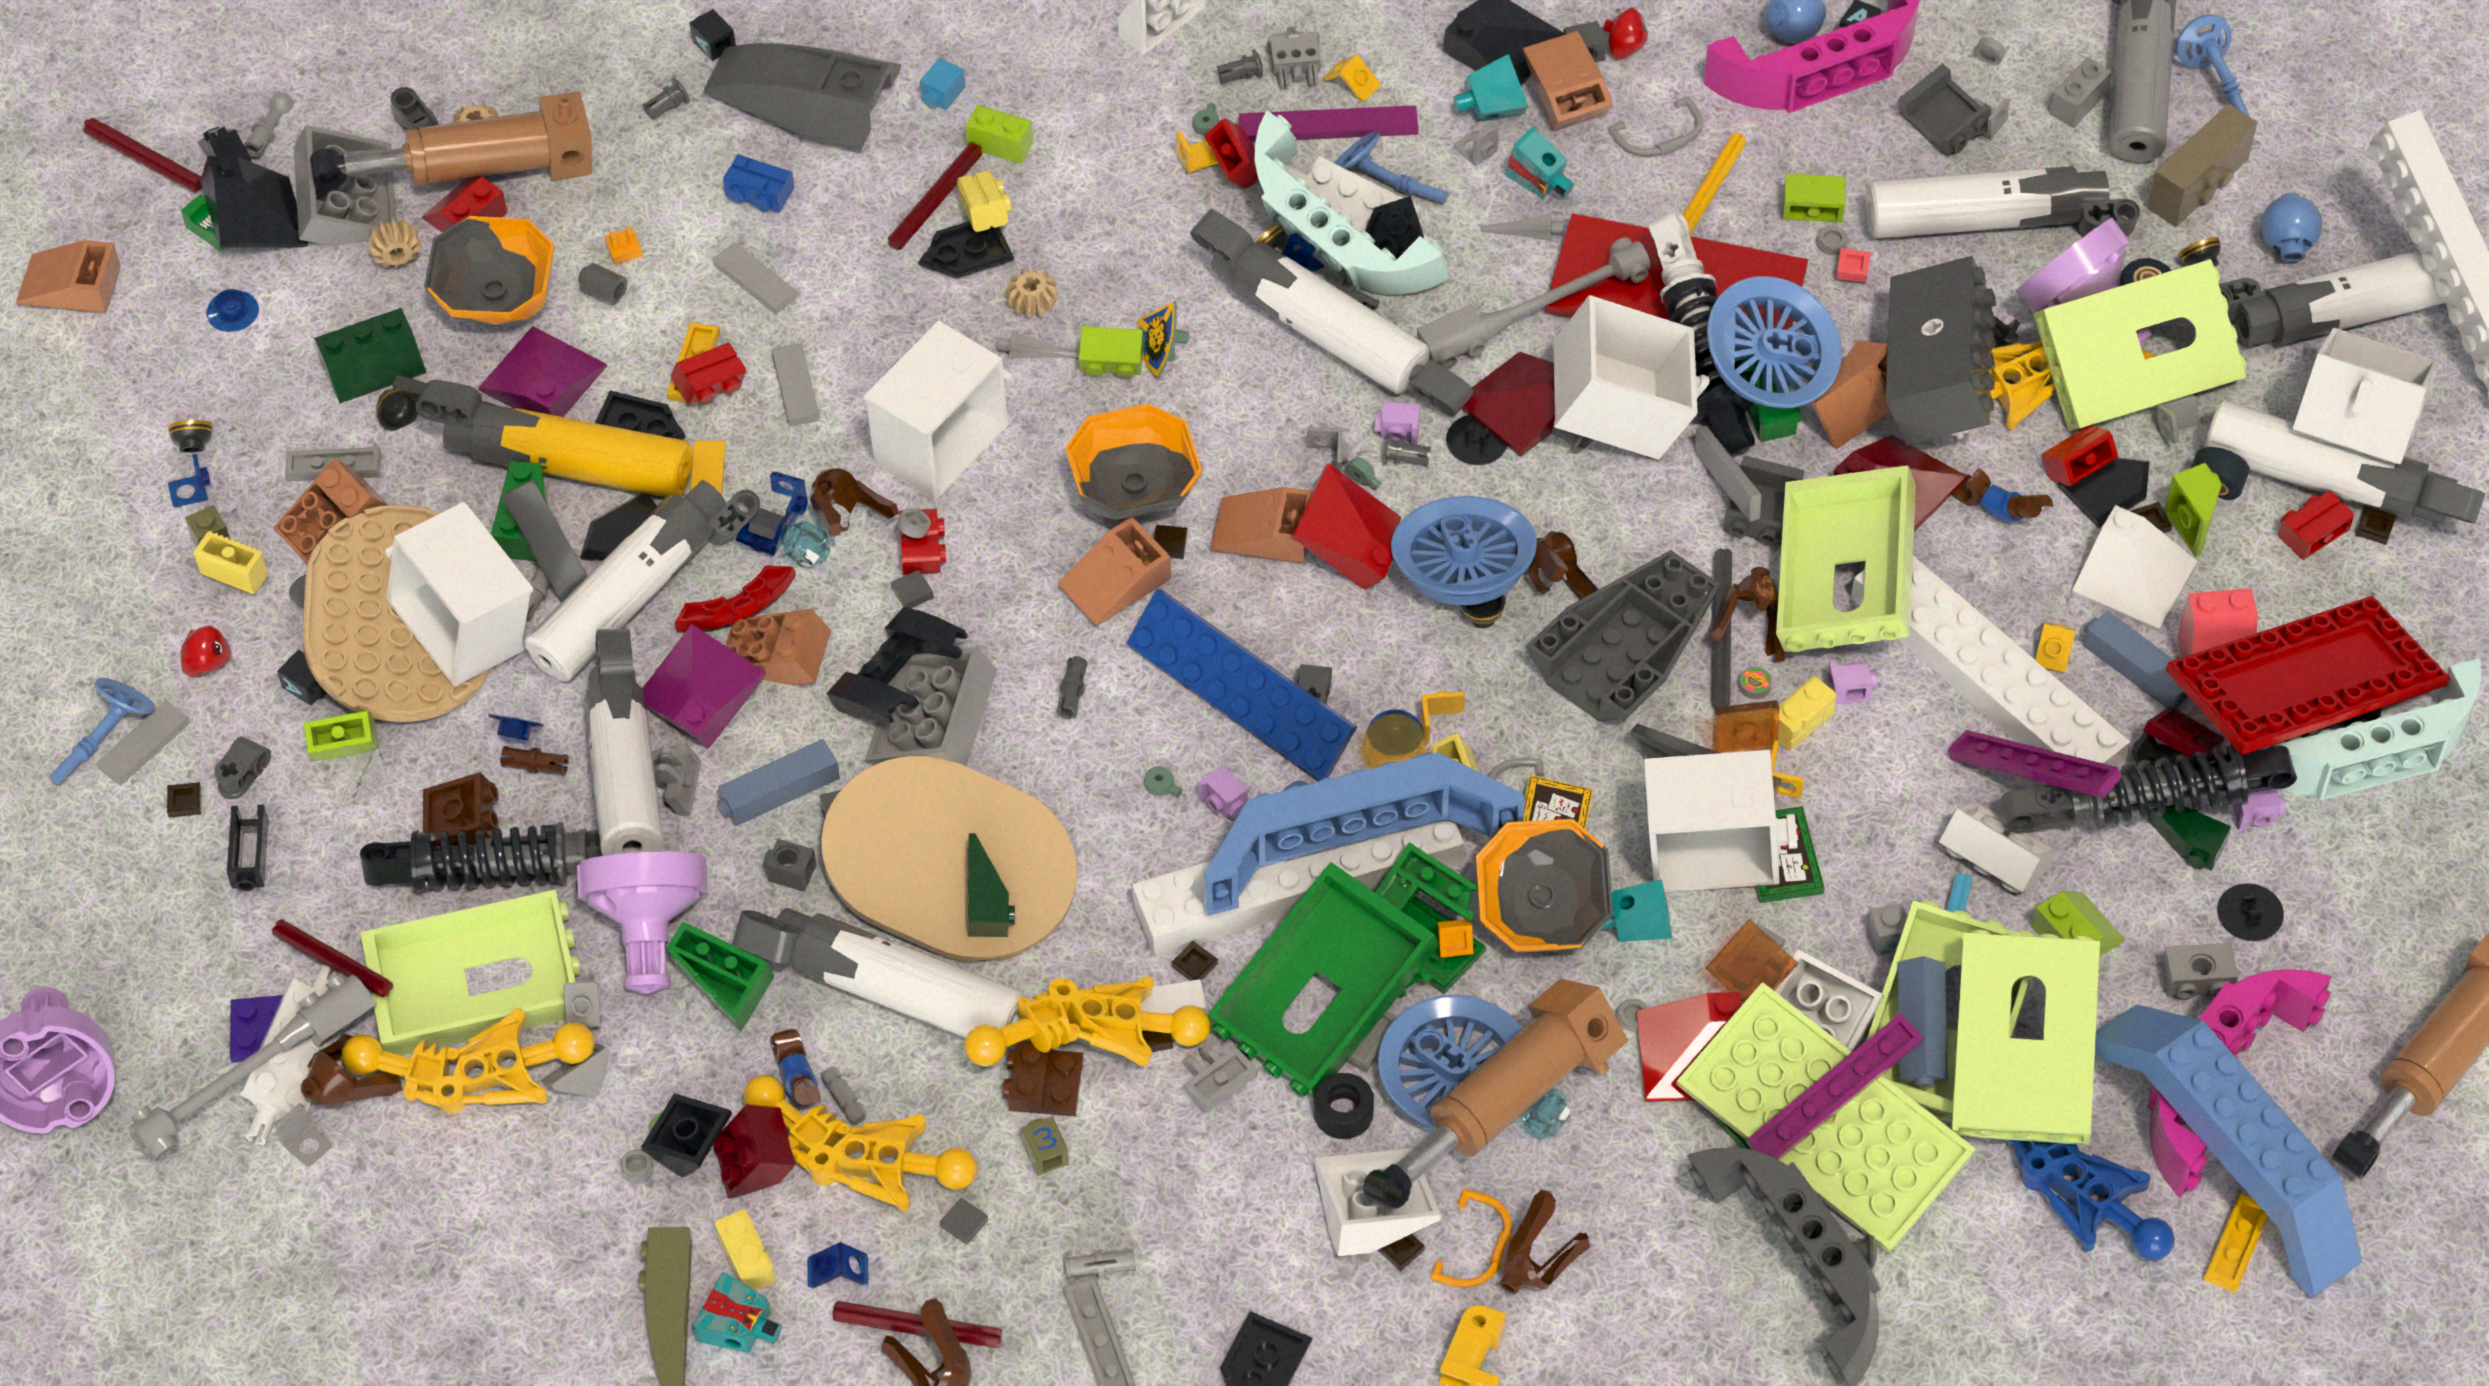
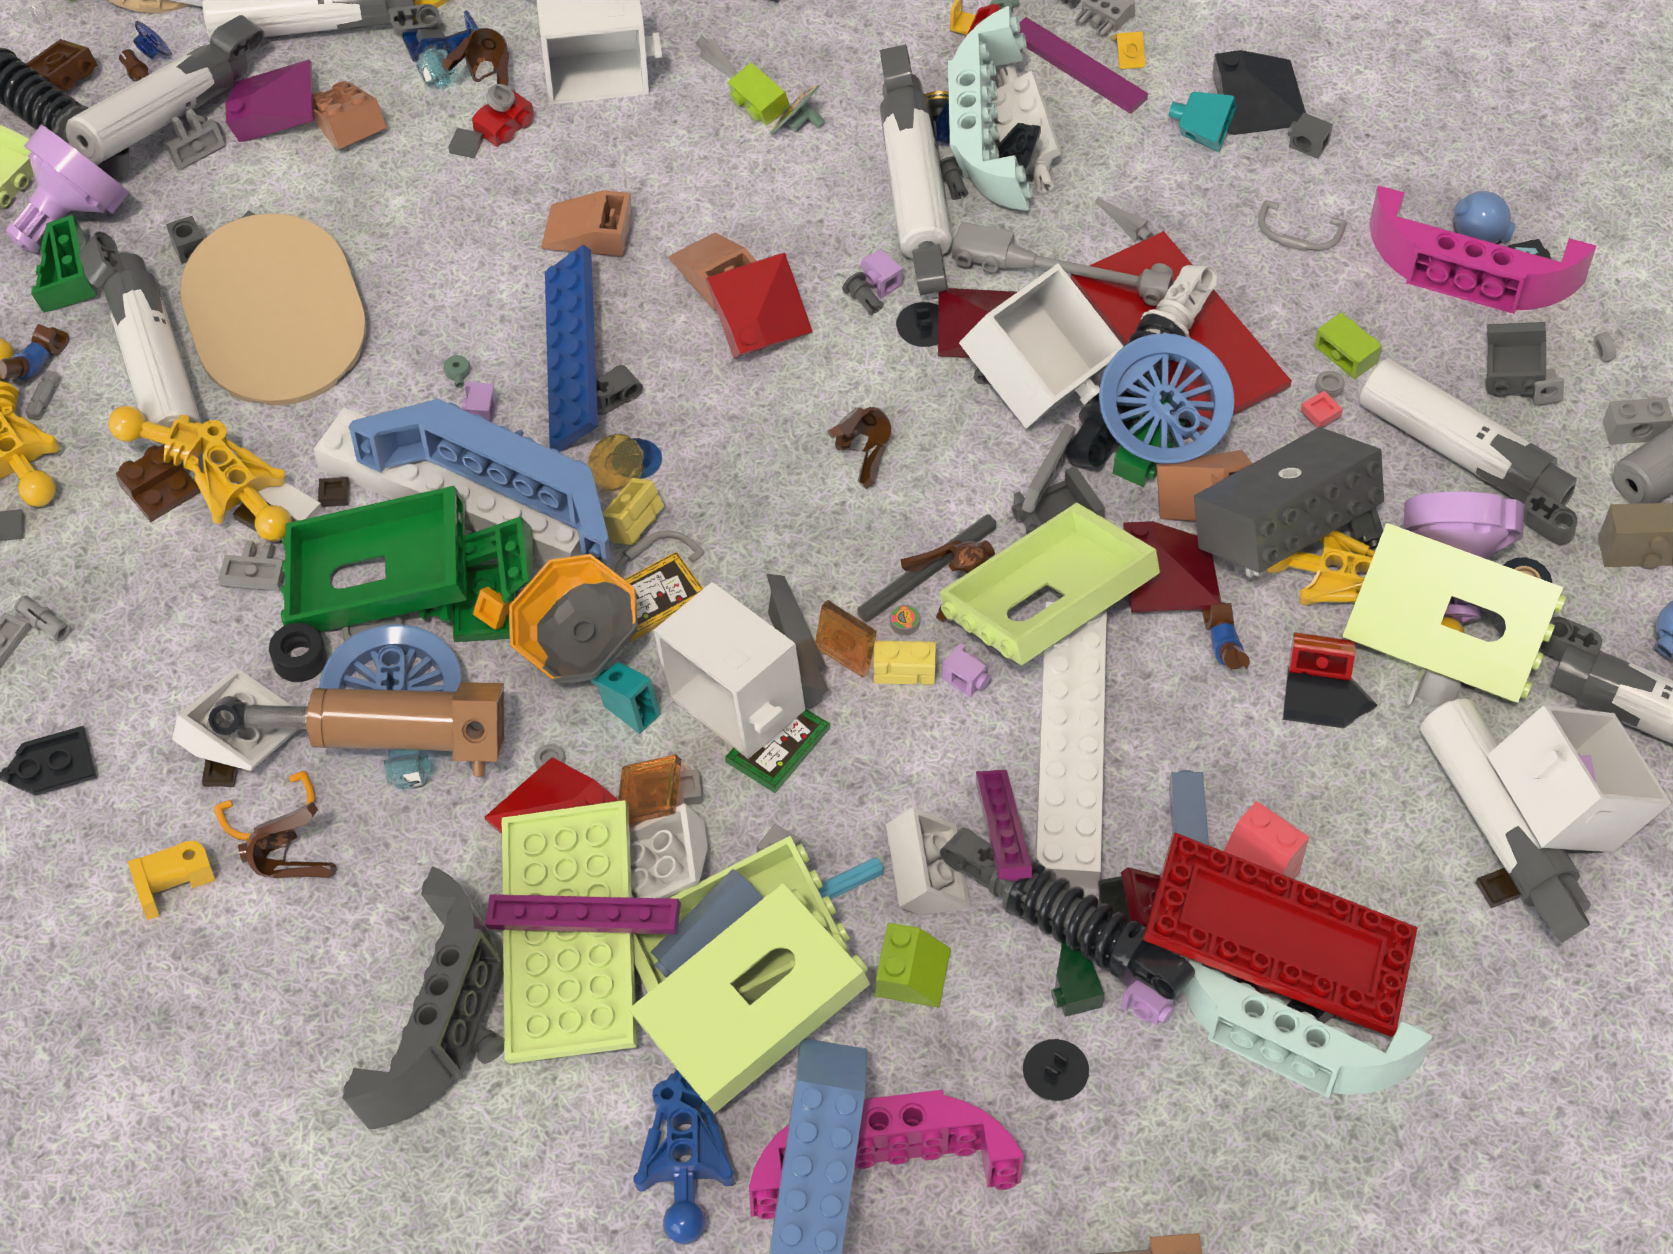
camera: 45 degrees right, 0 degrees up
(755, 596) = (374, 75): red tile -> none
(778, 783) = (242, 188): sand blue brick -> none
(868, 691) = (351, 175): black wedge -> none
(948, 713) = (382, 220): light grey slope -> none
(987, 895) = (255, 343): dark green slope -> none
(1031, 293) = (757, 26): tan gear -> none
(1044, 1145) = (102, 520): olive brick -> none
(1072, 687) = (478, 270): dark grey pin -> none
(1133, 462) = (671, 161): rock -> none
(1172, 540) = (650, 234): dark brown tile -> none
(1335, 442) = (822, 259): light grey bracket -> none
(1360, 157) = (1066, 96): medium blue dish -> none
(1362, 472) = (820, 285): sand green piece -> none
(1440, 703) = (672, 456): yellow bracket -> none
(1455, 551) = (826, 371): medium blue piece -> none
(1483, 145) = (1158, 147): light grey bracket -> none
(1485, 614) = (784, 423): pearl dark grey piece -> none
(1538, 166) = (1176, 191): teal torso -> none
(1567, 80) = (1261, 146): nougat slope -> none
(1624, 637) = (851, 513): dark grey wedge -> none
(1627, 33) = (1347, 149): red piece -> none
(1713, 179) = (1286, 286): yellow axle -> none
(1798, 782) = (838, 680): yellow bracket -> none
(2055, 646) = (1143, 766): yellow bracket -> none
(2134, 569) = (1268, 764): white slope -> none
(2155, 514) = (1326, 744): dark brown tile -> none
(2192, 504) = (1363, 756): lime slope -> none
(2201, 251) = (1594, 596): pearl dark grey piece -> none
(2213, 960) = (952, 1056): light grey brick -> none
(2228, 466) = (1411, 750): black wheel -> none
(2315, 524) = (1446, 846): red brick -> none

